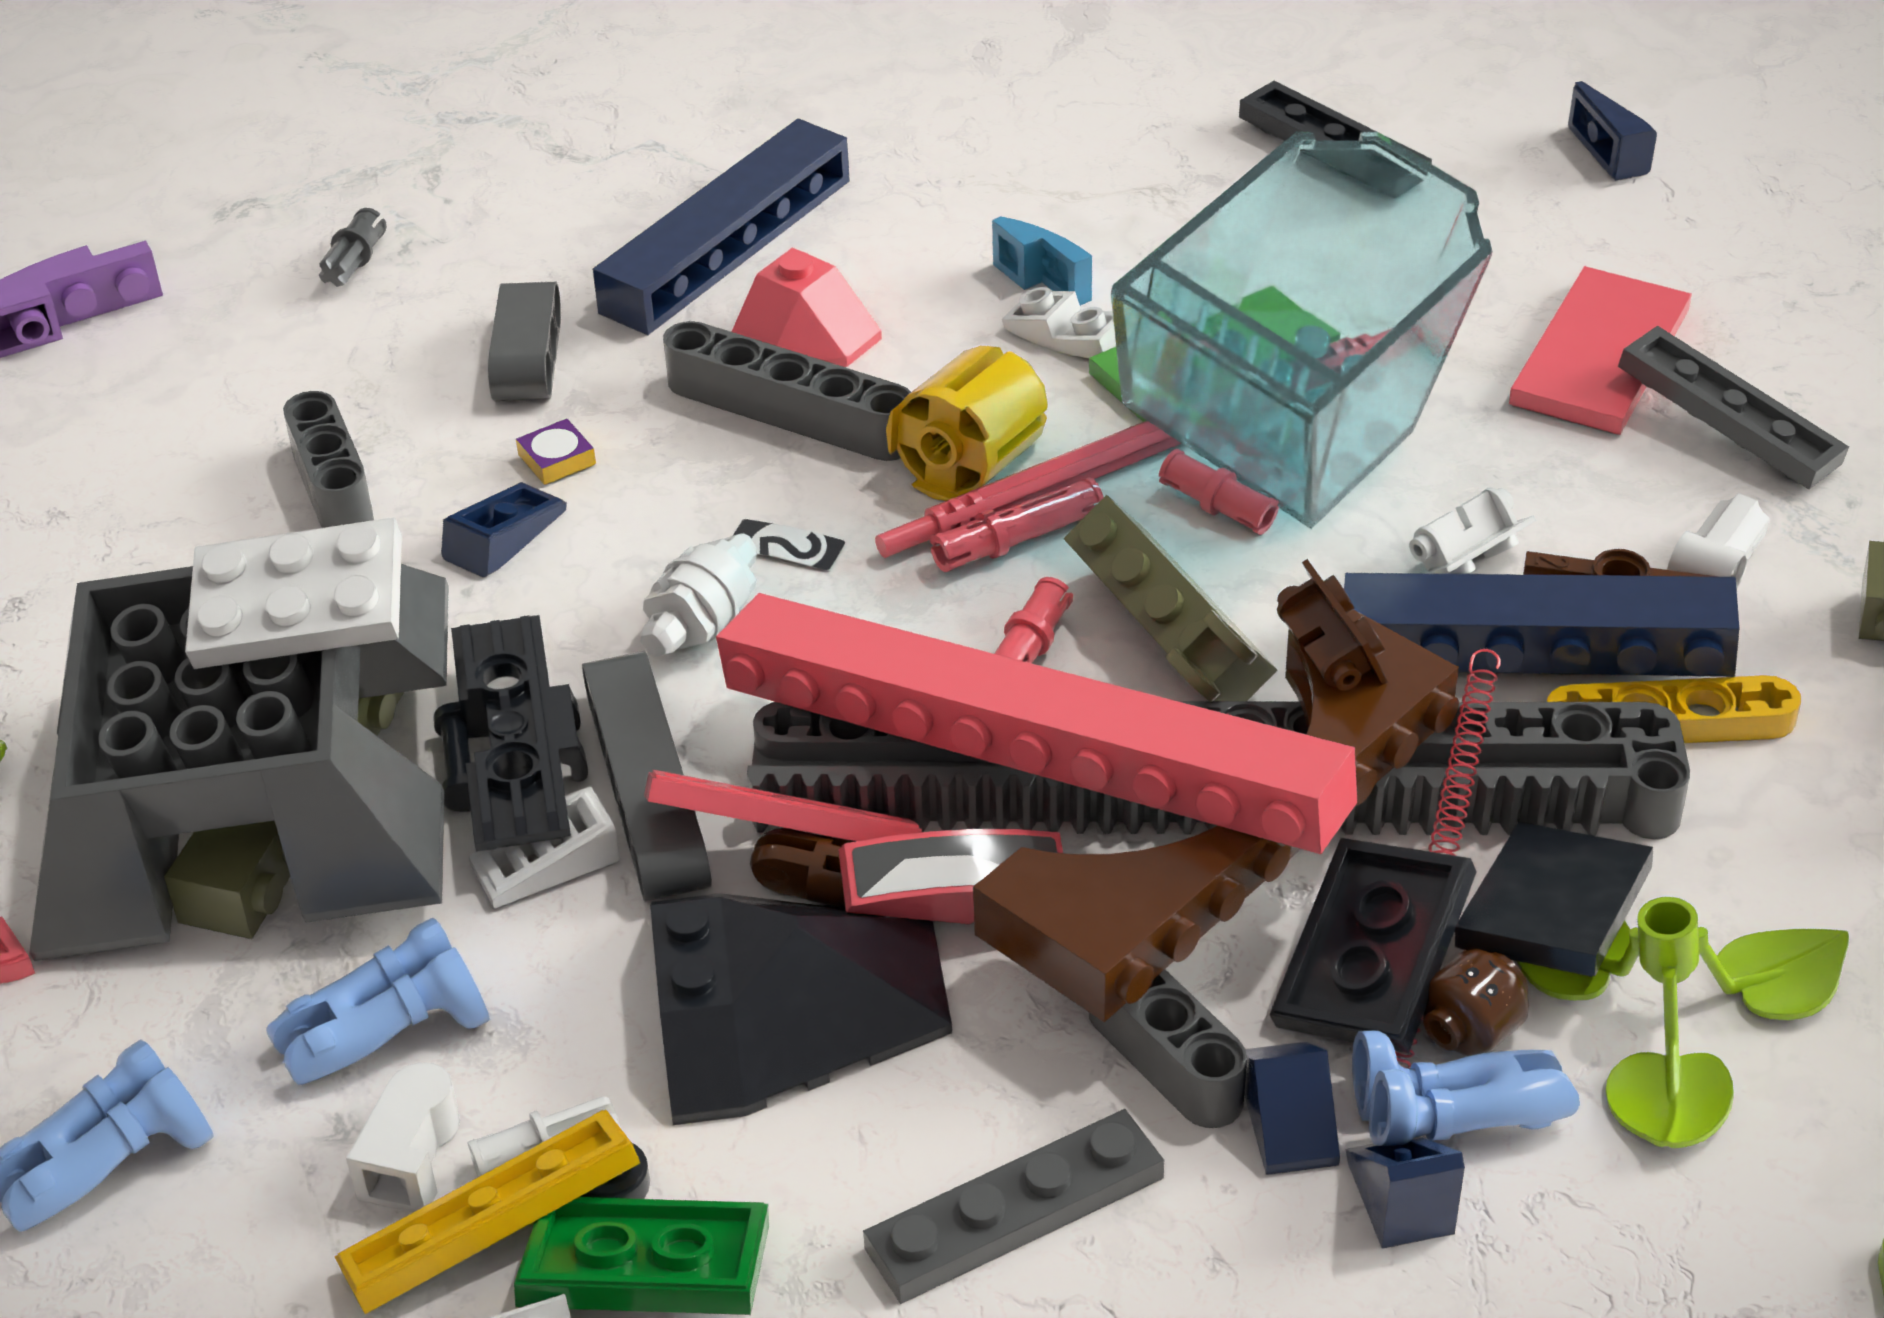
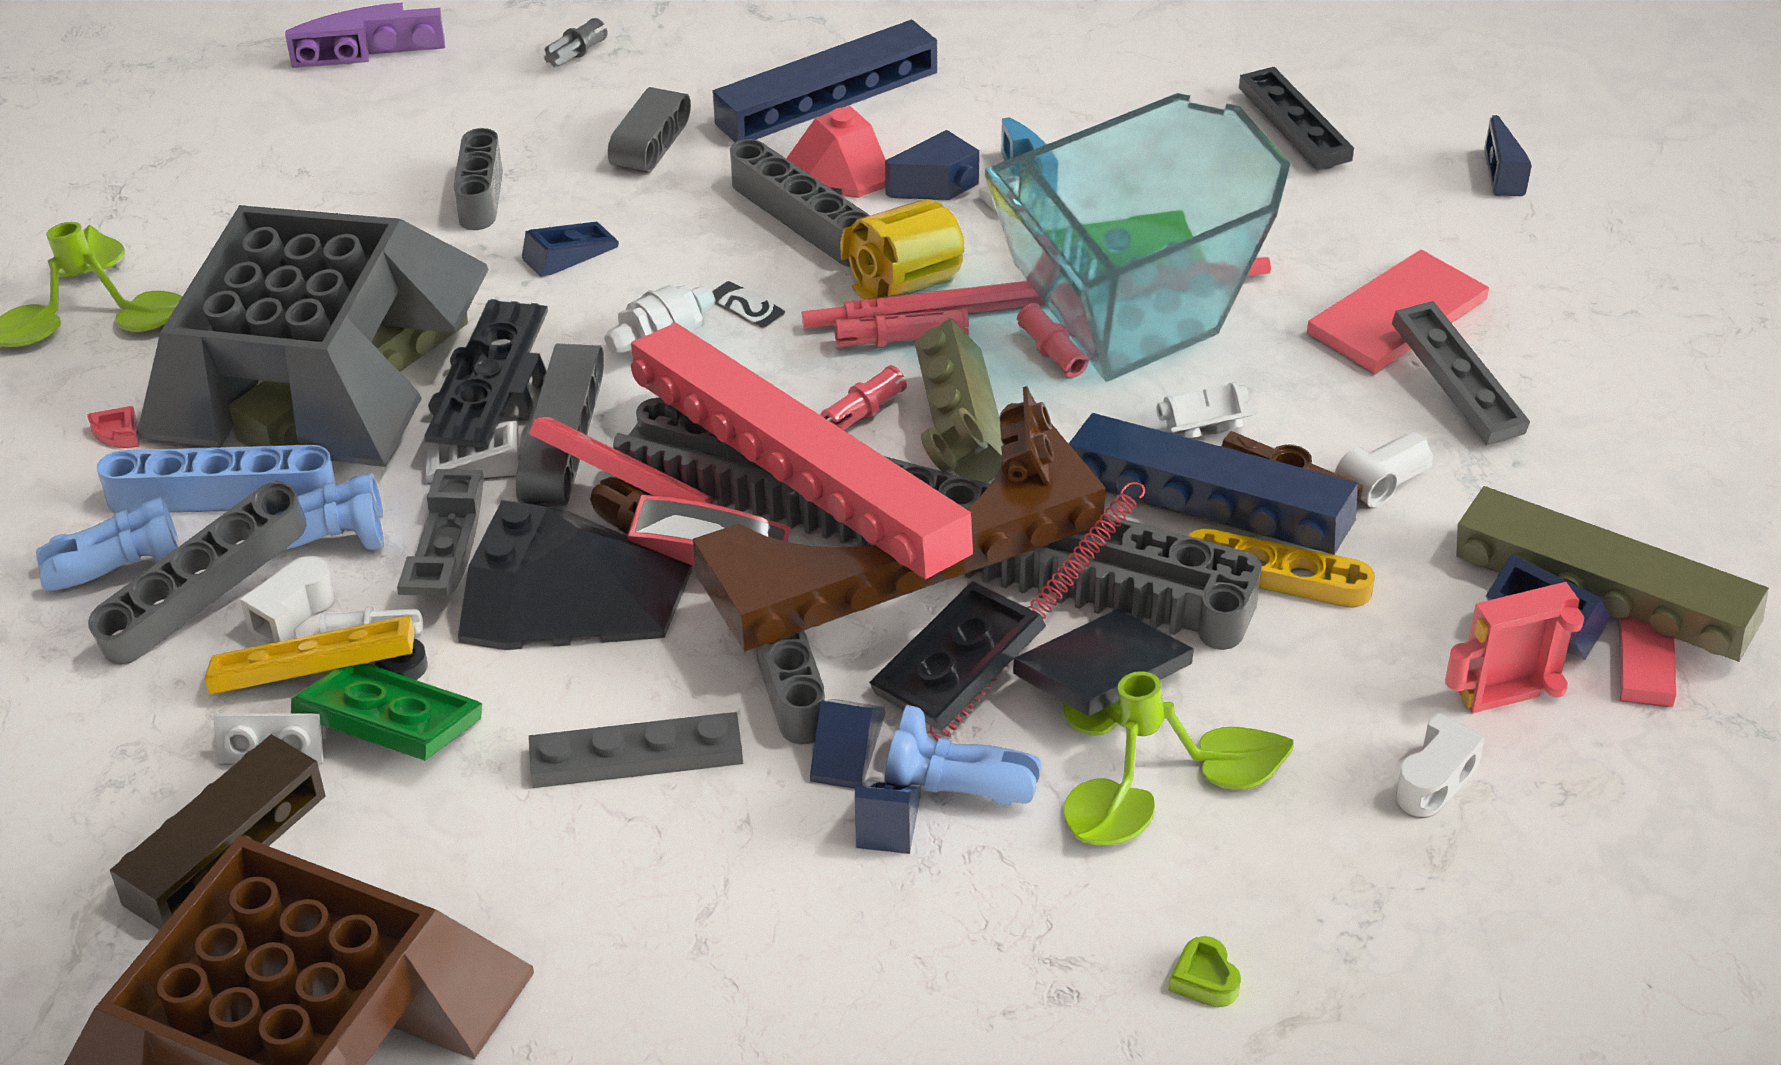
camera: 20 degrees right, 0 degrees up
(190, 989) = (208, 476): none -> light blue beam
(261, 1169) = (190, 593): none -> dark grey beam
(294, 593) = (355, 241): white plate -> none
(556, 451) = (630, 207): tile -> none
(575, 978) = (447, 534): none -> dark grey slope
(935, 306) = (933, 169): none -> dark blue slope
(1477, 1001) = (1006, 712): reddish brown head -> none

